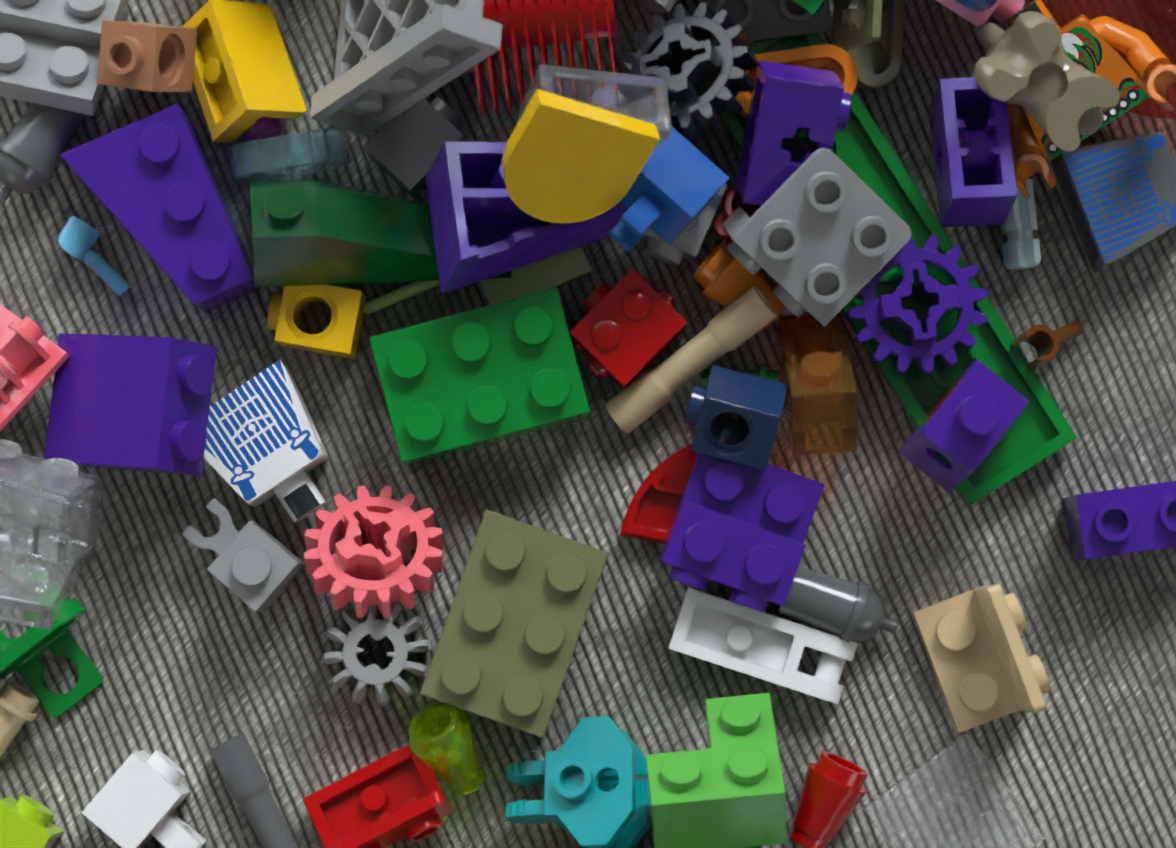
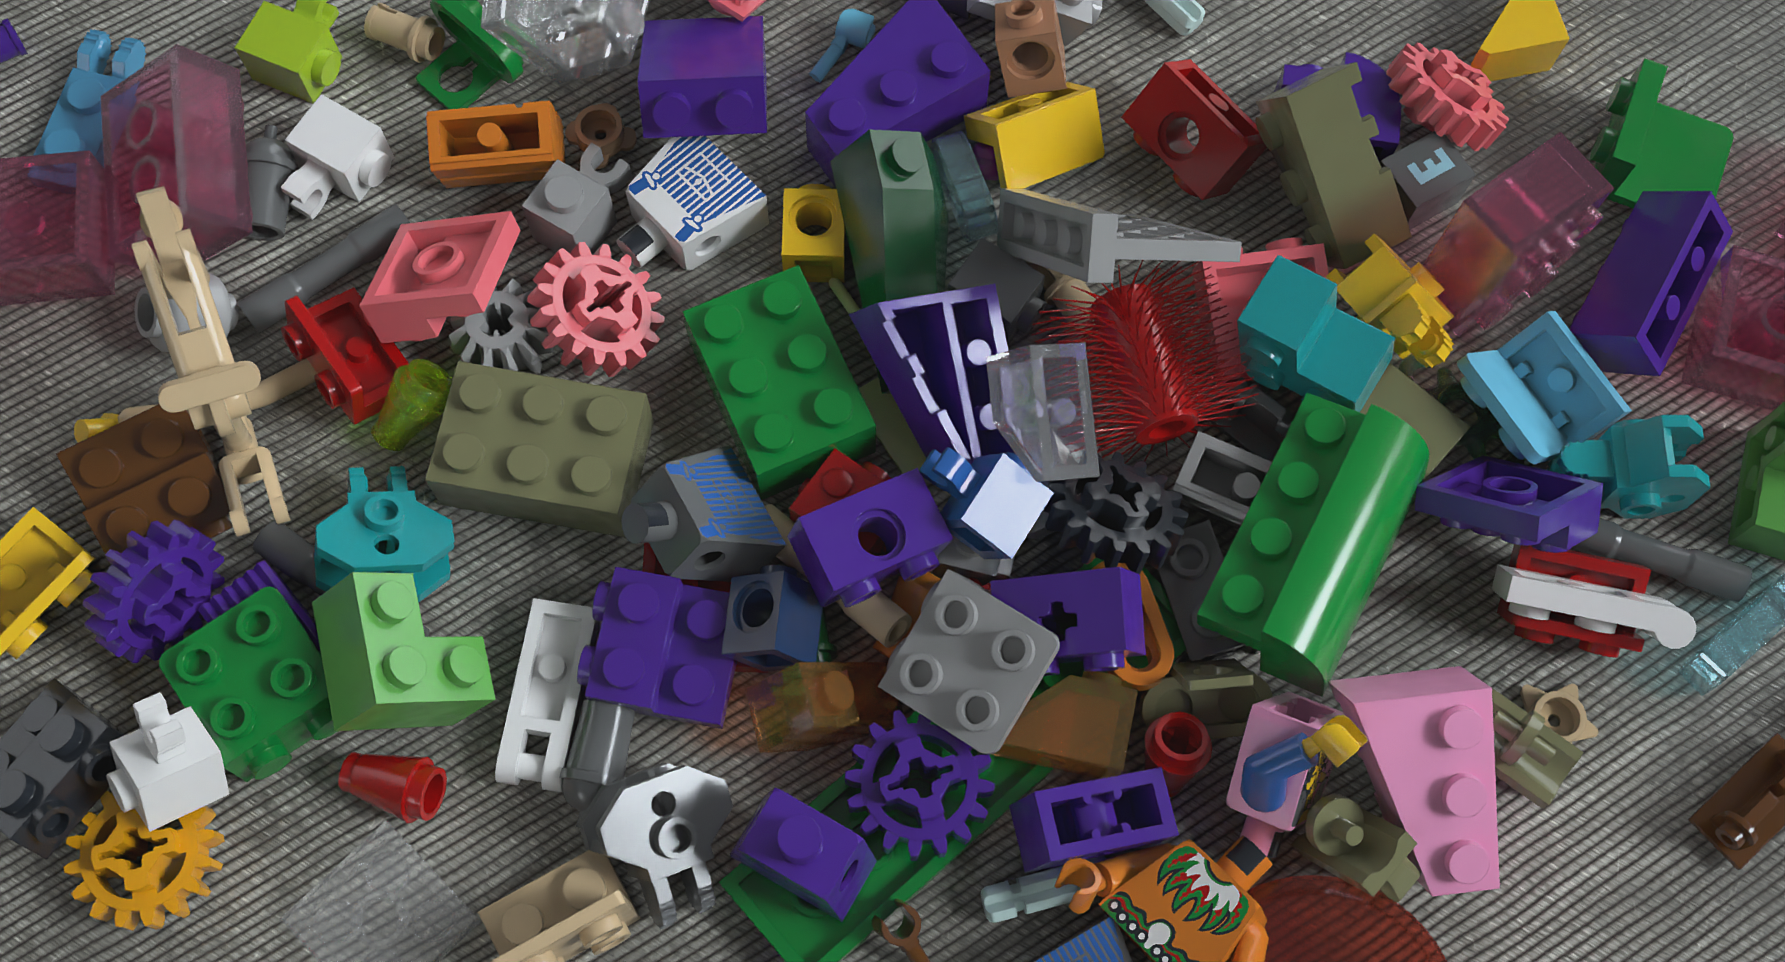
camera: 75 degrees right, 15 degrees down
(143, 520) = (601, 119): none -> medium nougat plate
(169, 633) = (494, 143): none -> orange brick
(316, 704) = (437, 273): none -> coral plate
(573, 158) = (996, 387): yellow tile -> none
(621, 470) = (703, 519): none -> dark grey torso
(678, 346) = (897, 512): none -> dark purple brick
(887, 144) = (1076, 726): none -> clear orange slope
(918, 61) = (1179, 746): none -> red cone
(919, 552) = (658, 827): none -> dark grey hinge
(1033, 71) = (1183, 859): dark tan animal -> none

